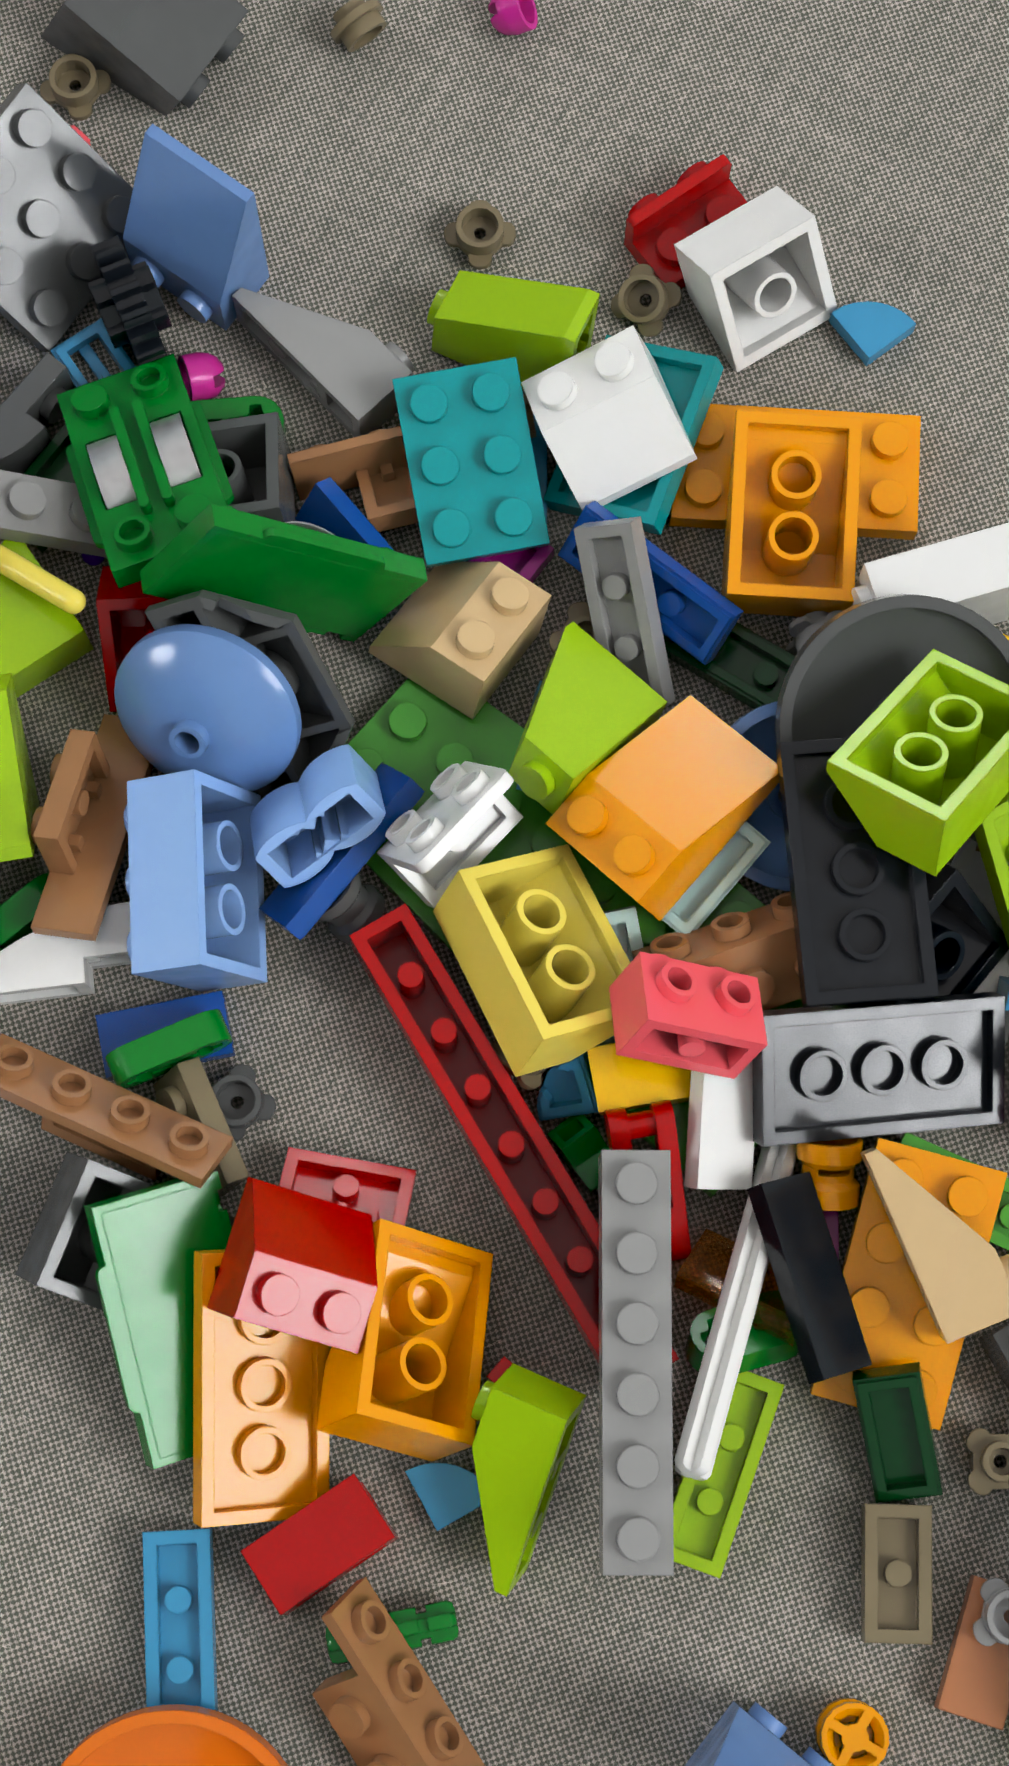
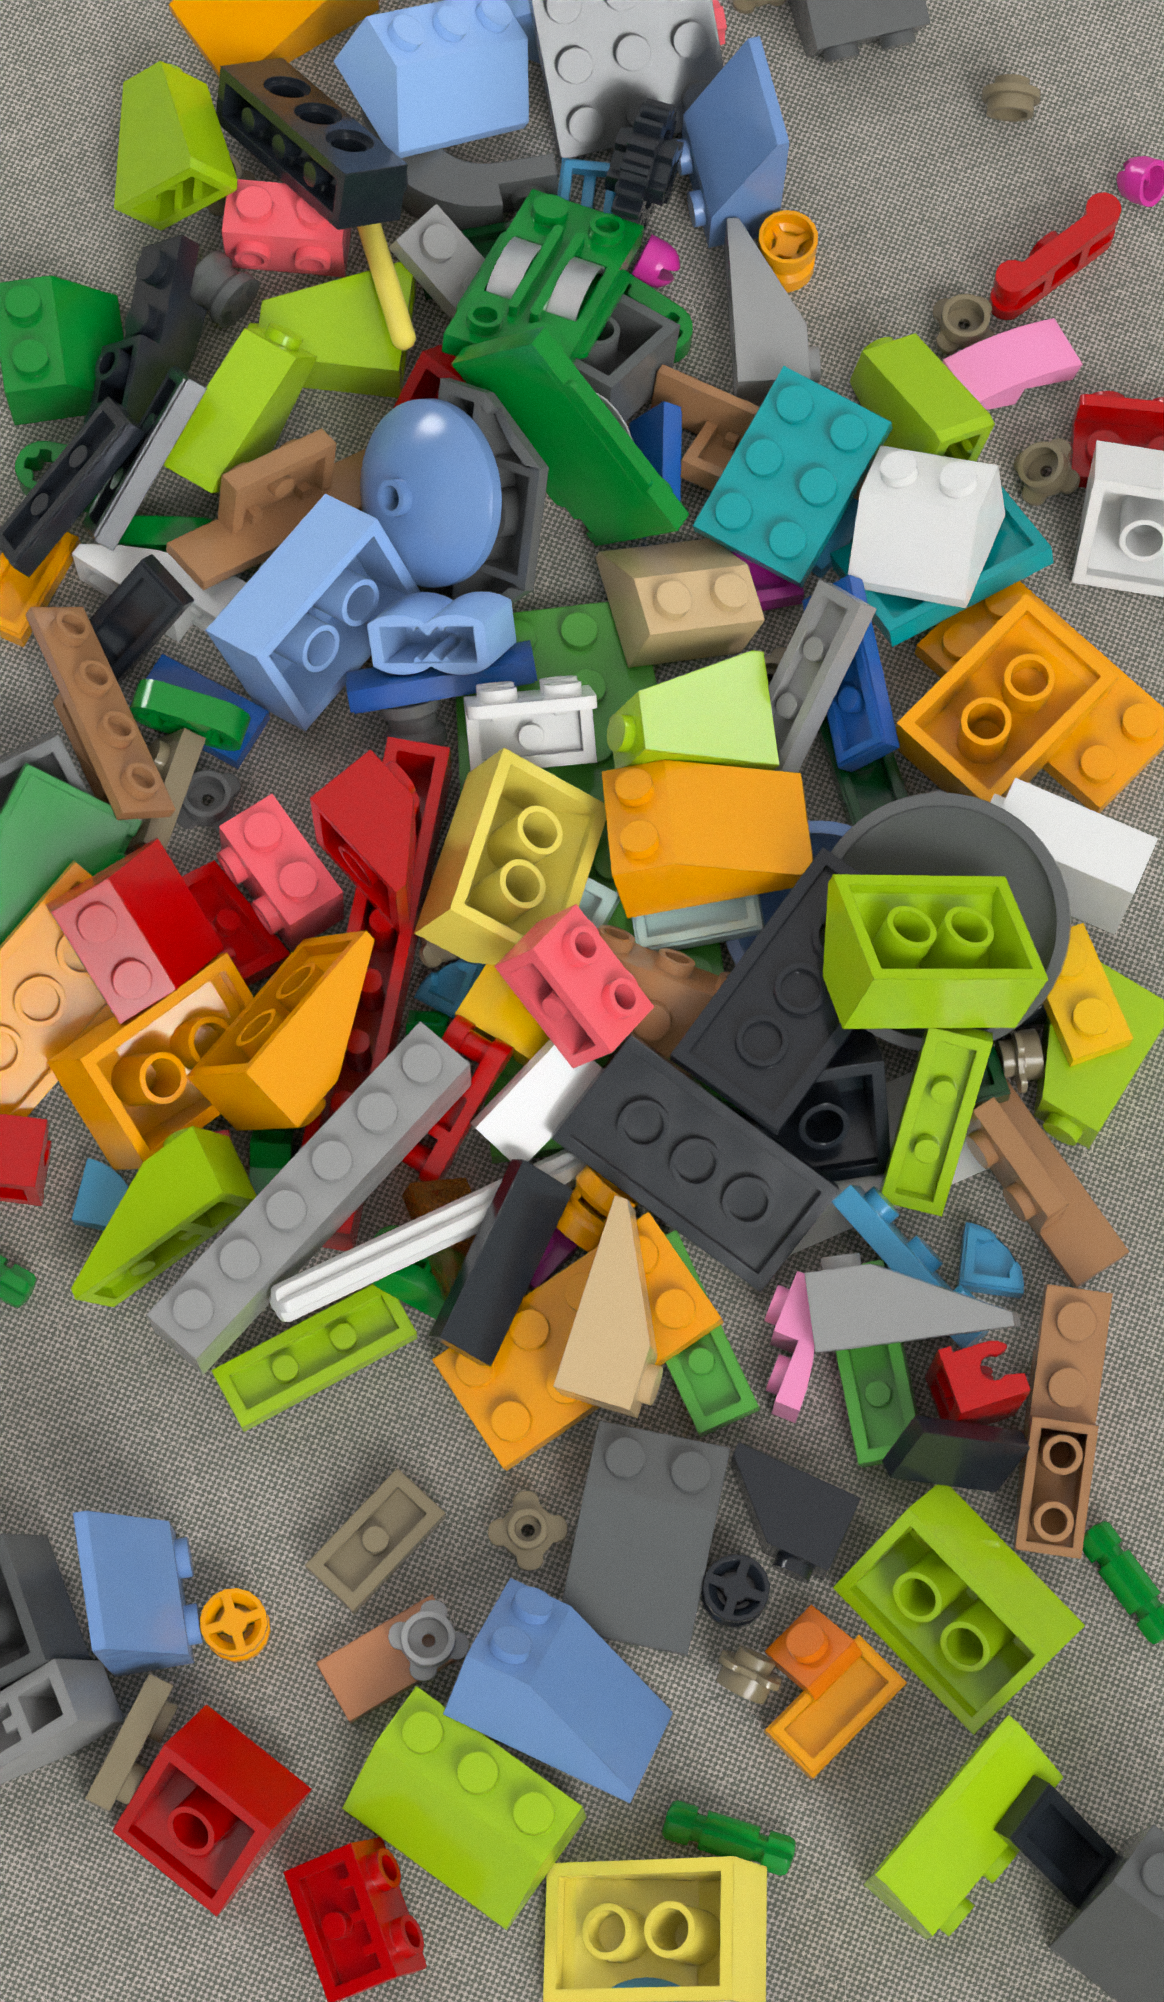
camera: 40 degrees right, 5 degrees down
(55, 1001) = (138, 614): none -> black tile
(291, 271) = (795, 240): none -> light orange wheel
(352, 1114) = (280, 872): none -> coral brick
(428, 1028) = (370, 832): none -> red slope
(493, 1241) = (289, 1038): none -> light orange slope
(505, 123) = (1055, 259): none -> red plate
(549, 231) = (1015, 360): none -> bright pink slope
(551, 1347) = (269, 1154): none -> green piece
(897, 1432) = (468, 1437): dark green tile -> none

